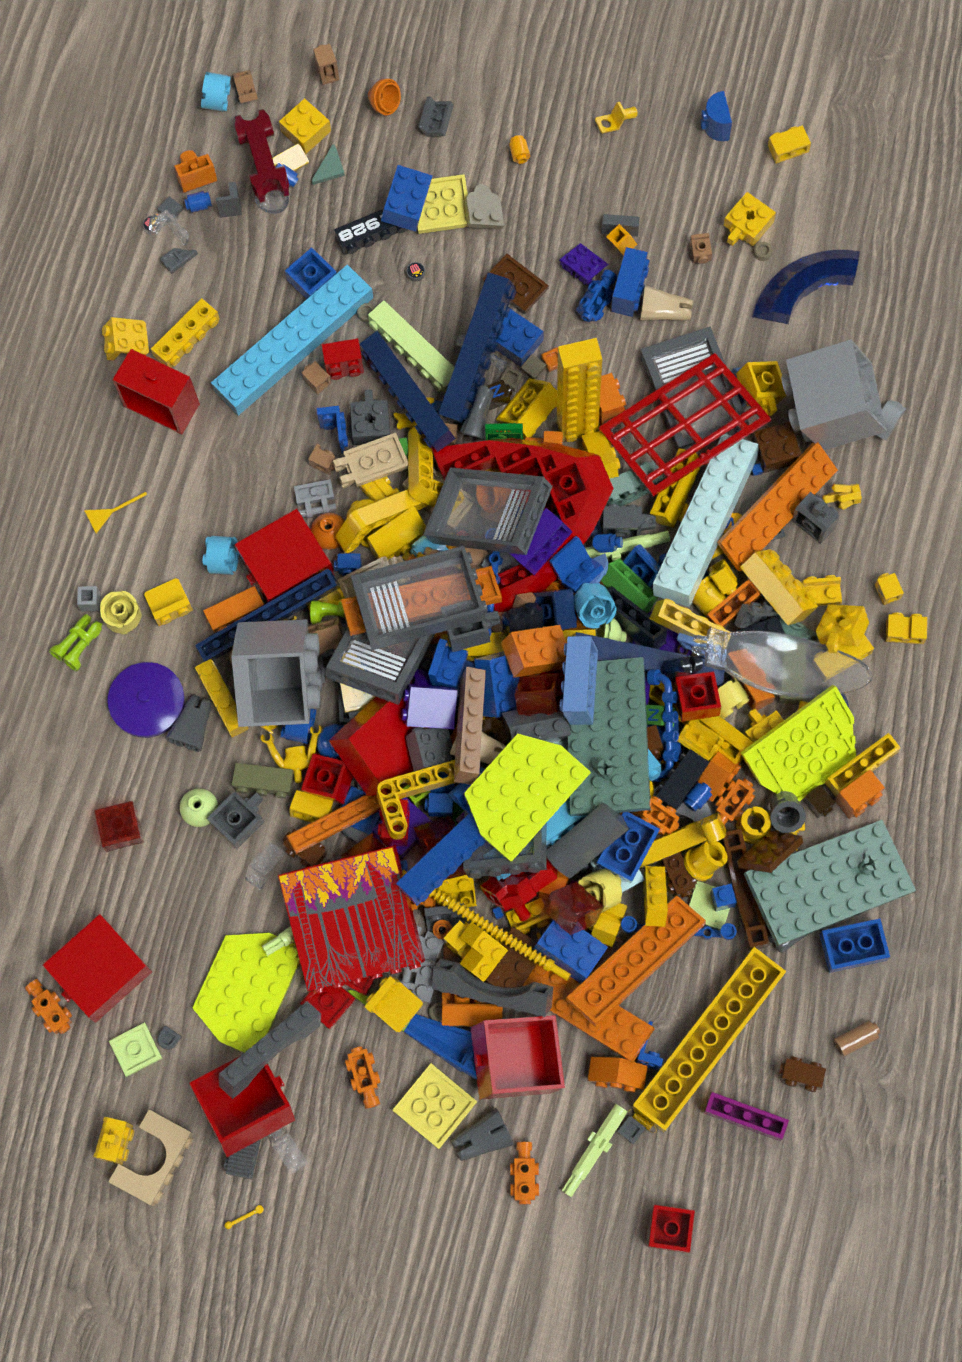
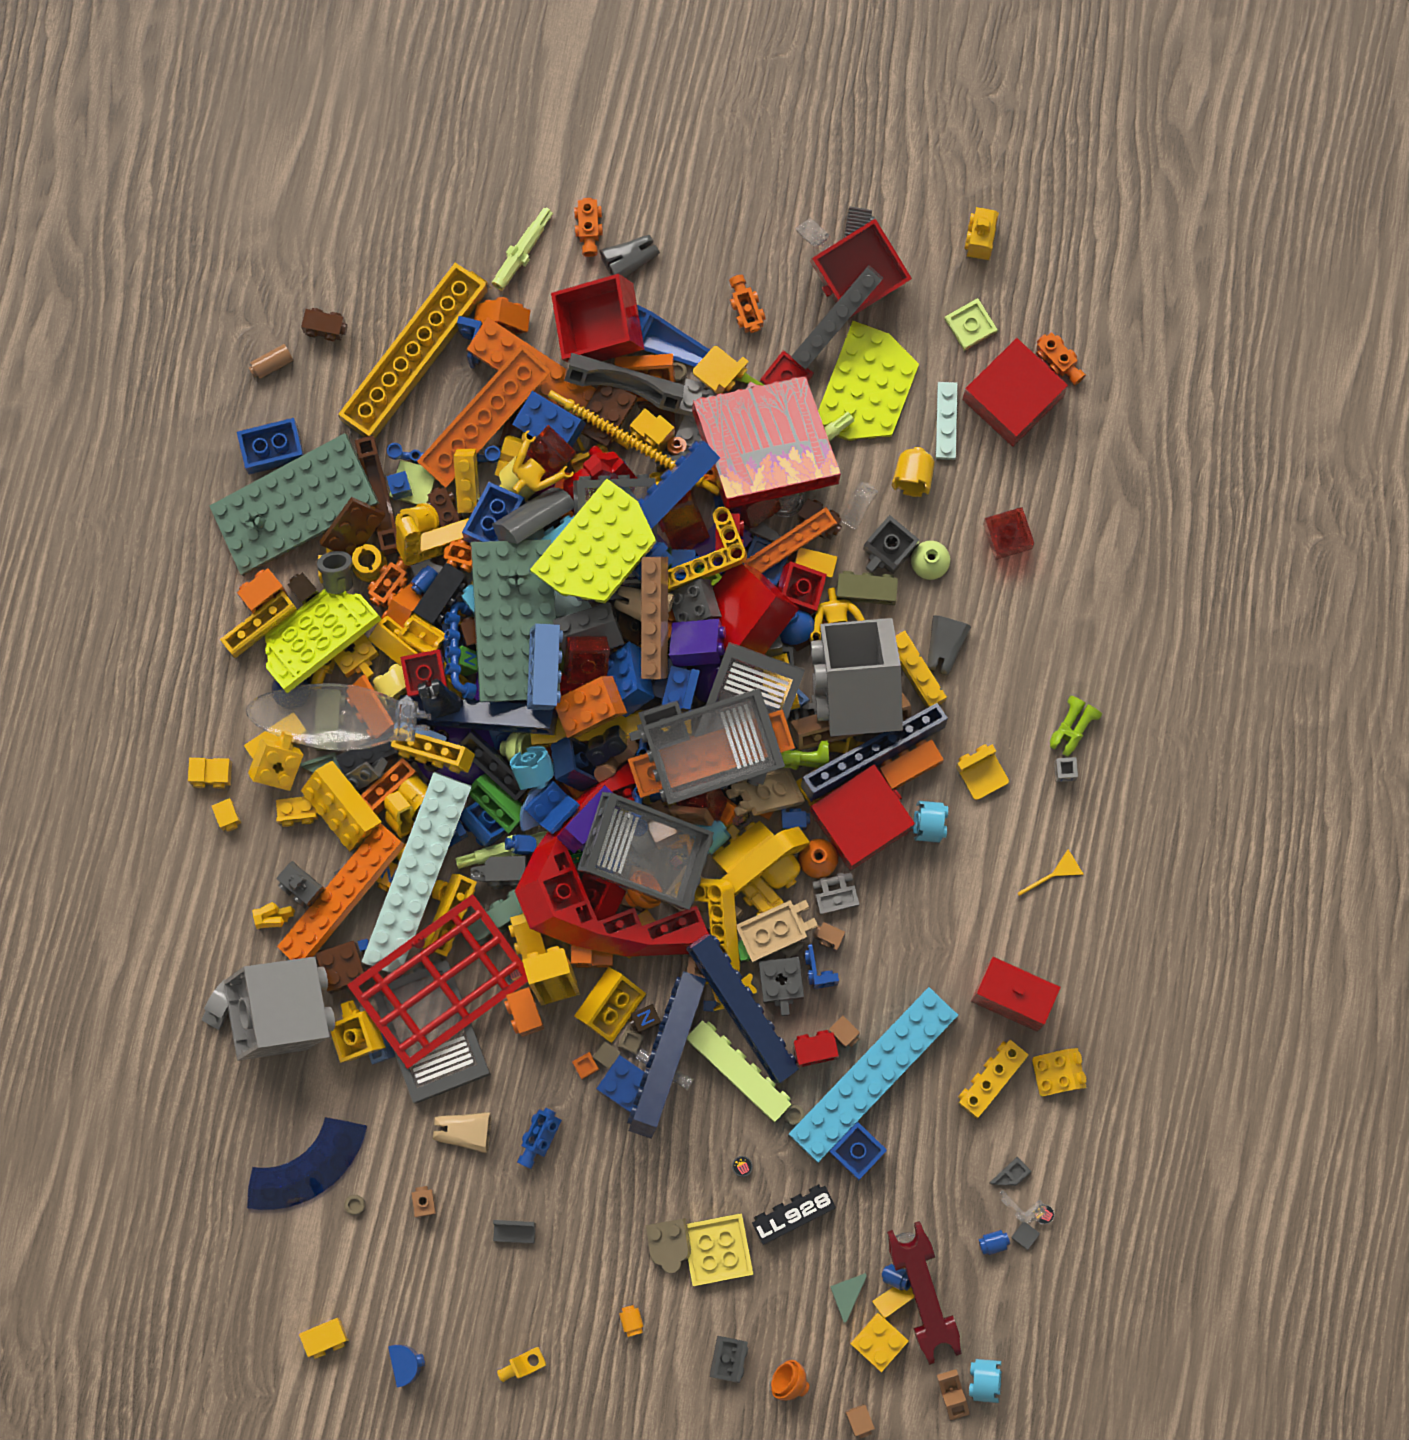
camera: 175 degrees right, 5 degrees up
(123, 602) = (1027, 746): light yellow brick -> none
(146, 699) = (995, 669): dark purple dish -> none
(150, 1187) = (945, 198): tan arch -> none
(168, 1038) = (940, 336): dark grey tile -> none
(170, 949) = (946, 420): none -> light aqua plate
(194, 171) = (1001, 1278): orange brick -> none
(206, 892) = (914, 472): none -> yellow cylinder
(231, 204) = (950, 1239): dark grey panel -> none
(259, 1209) = (838, 185): yellow hinge -> none
(406, 198) = (755, 1243): blue brick -> none
(435, 1106) = (676, 283): light yellow plate -> none
(475, 422) = (666, 975): dark grey piece -> none
(484, 952) = (635, 415): yellow brick -> none
(504, 431) = (634, 964): green tile -> none
(527, 285) = (629, 1153): reddish brown plate -> none
(583, 263) = (554, 1181): dark purple hinge -> none
(589, 882) = (531, 472): none -> yellow piece
(621, 239) = (512, 1206): light orange brick -> none
(630, 282) = (501, 1152): blue brick -> none
(631, 1130) = (487, 269): dark grey plate -> none
(671, 1229) = (448, 180): red brick -> none
(746, 1116) = (378, 282): magenta brick -> none
(748, 220) = (382, 1236): yellow hinge -> none

